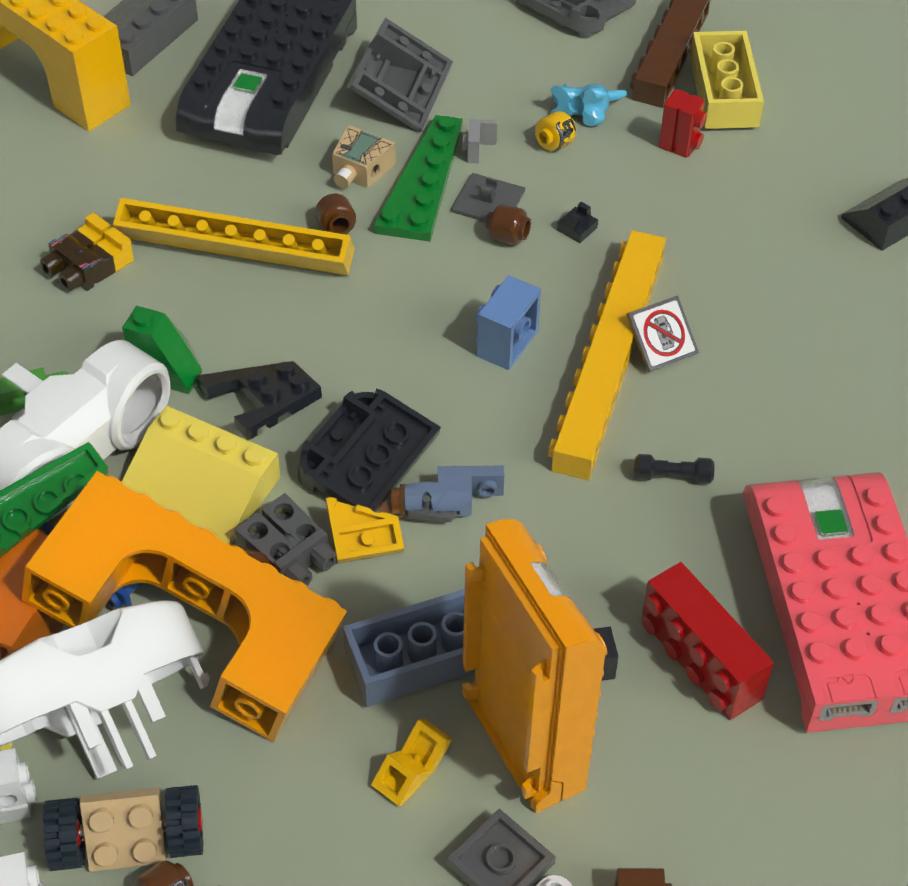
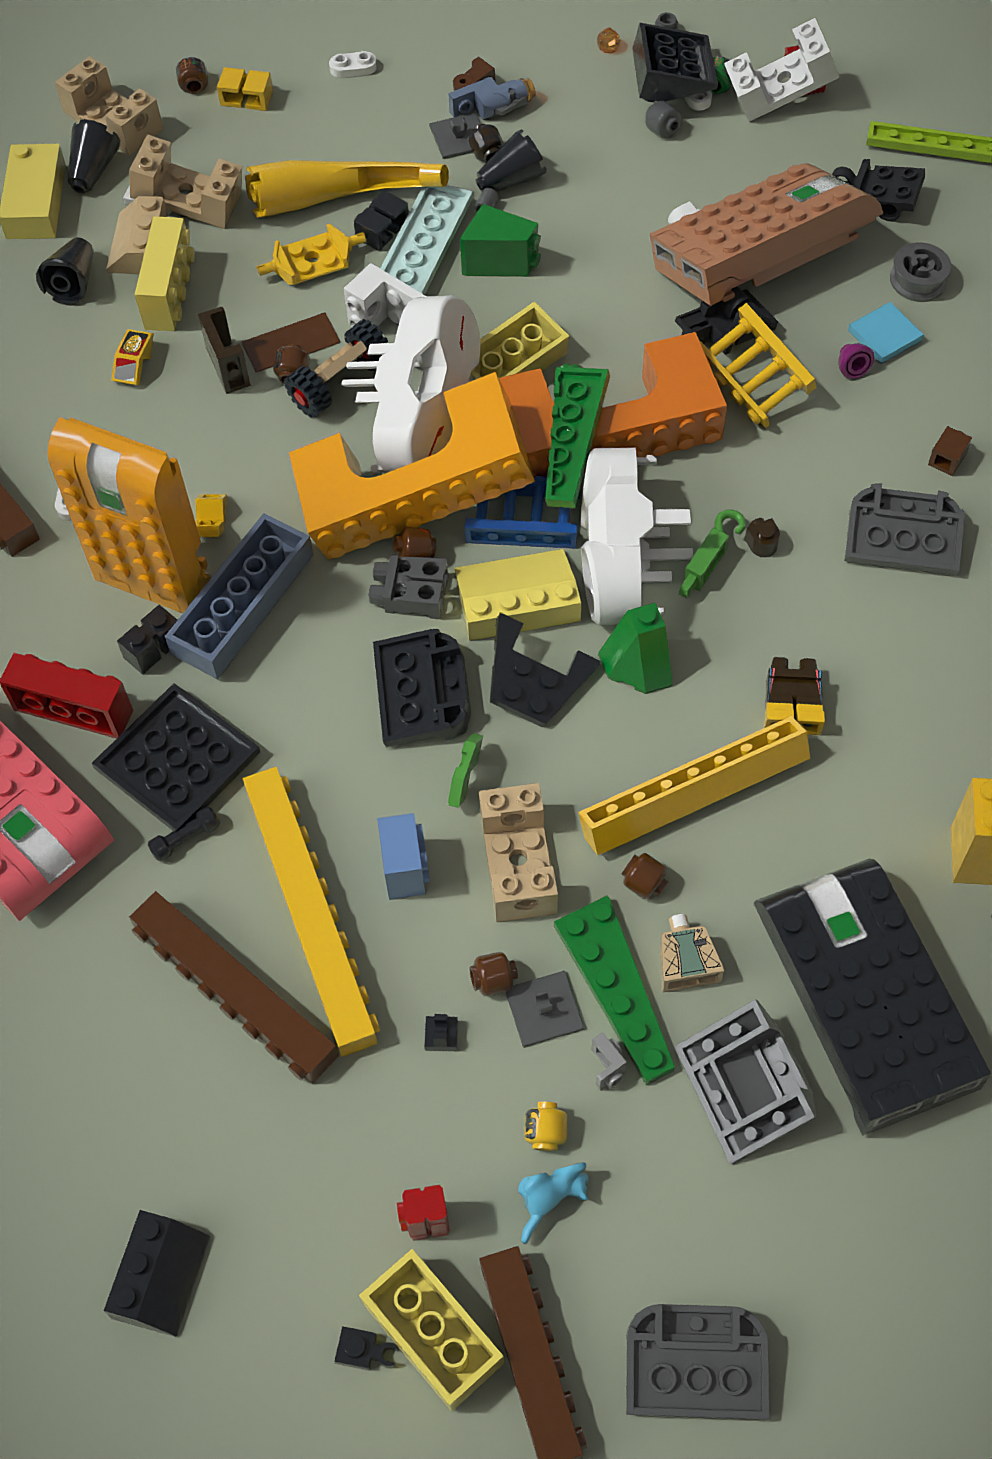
camera: 145 degrees right, 10 degrees up
(361, 532) = (367, 625): yellow wing -> none
(406, 349) = (461, 775): none -> bright green tile
(431, 268) = (513, 826): none -> tan plate
(449, 495) = (331, 695): sand blue plate -> none
(630, 533) = (176, 758): none -> black plate
(662, 333) = (273, 944): piece -> none
(718, 339) = (234, 987): none -> reddish brown brick
(779, 109) = (358, 1349): none -> black plate

